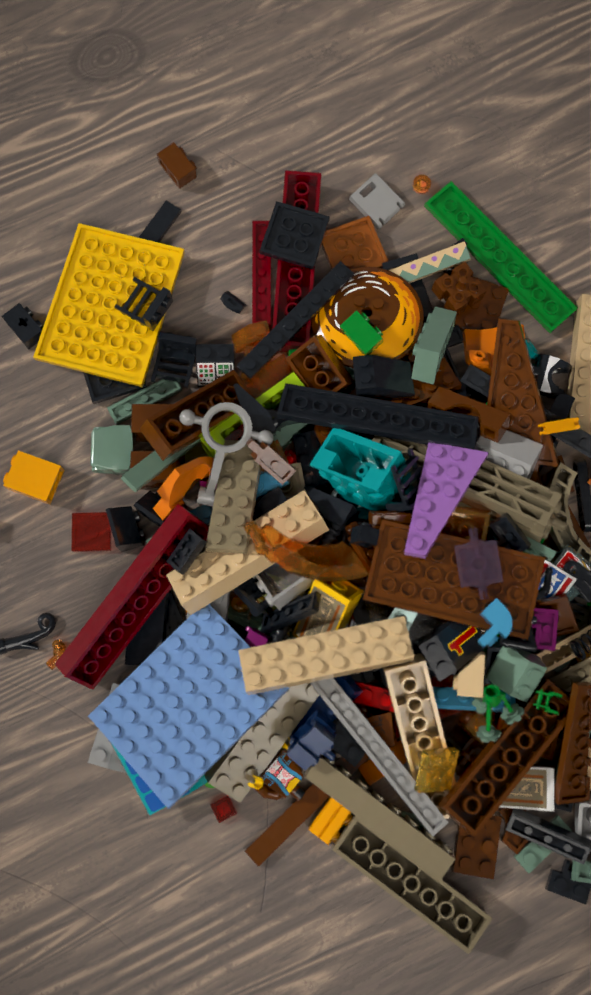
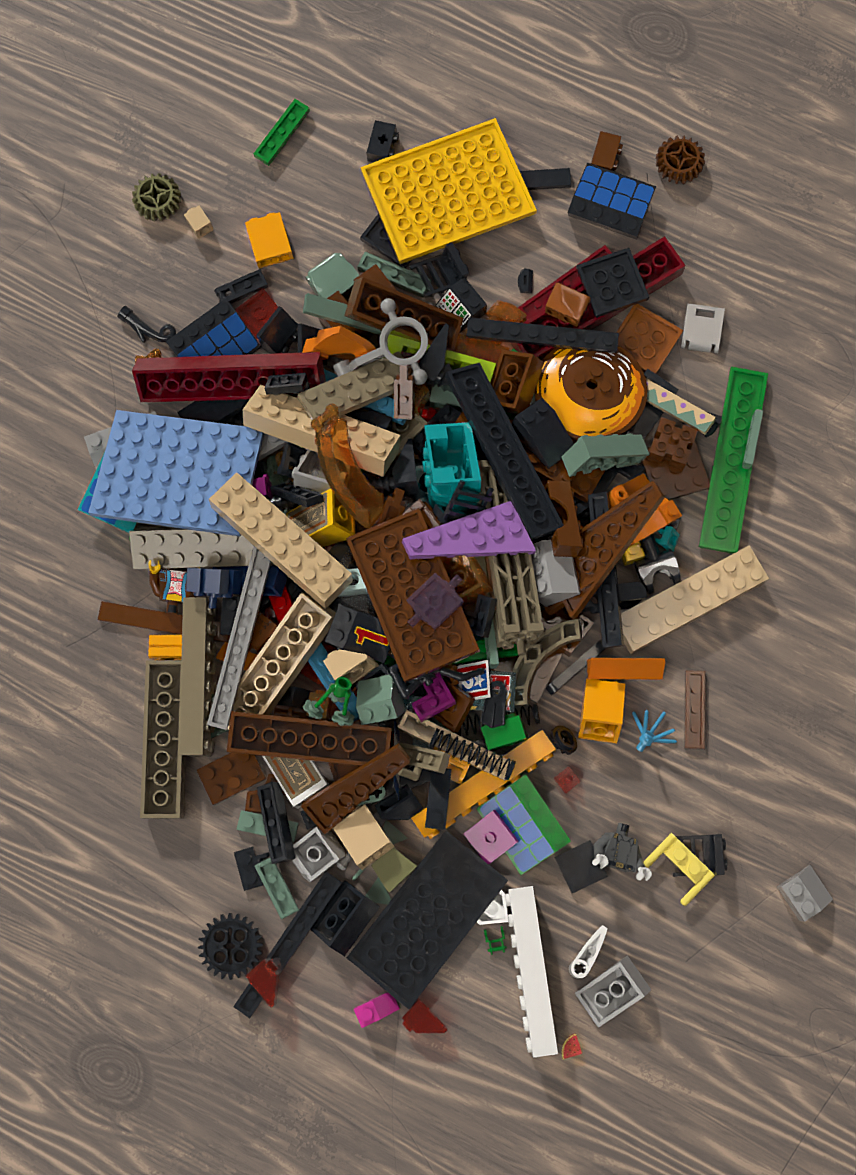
camera: 65 degrees right, 0 degrees up
(57, 530) = (242, 286): none -> black plate
(83, 584) = (215, 334): none -> slope
(156, 309) = (468, 225): black plate -> none
(221, 188) = (611, 201): none -> slope
(223, 808) = (121, 564): clear red tile -> none
(227, 108) = (694, 159): none -> reddish brown gear
(286, 281) = (567, 304): none -> dark orange piece
(362, 333) = (566, 390): green brick -> none
(364, 535) = (397, 504): black plate -> none
(421, 184) = (748, 353): clear orange tile -> none
(436, 770) = (257, 689): clear yellow plate -> none
(498, 229) = (752, 439): none -> sand green tile
(501, 621) = (400, 648): dark azure brick -> none
(546, 709) = (372, 737): green piece -> none
(559, 426) = (605, 594): light orange piece -> none

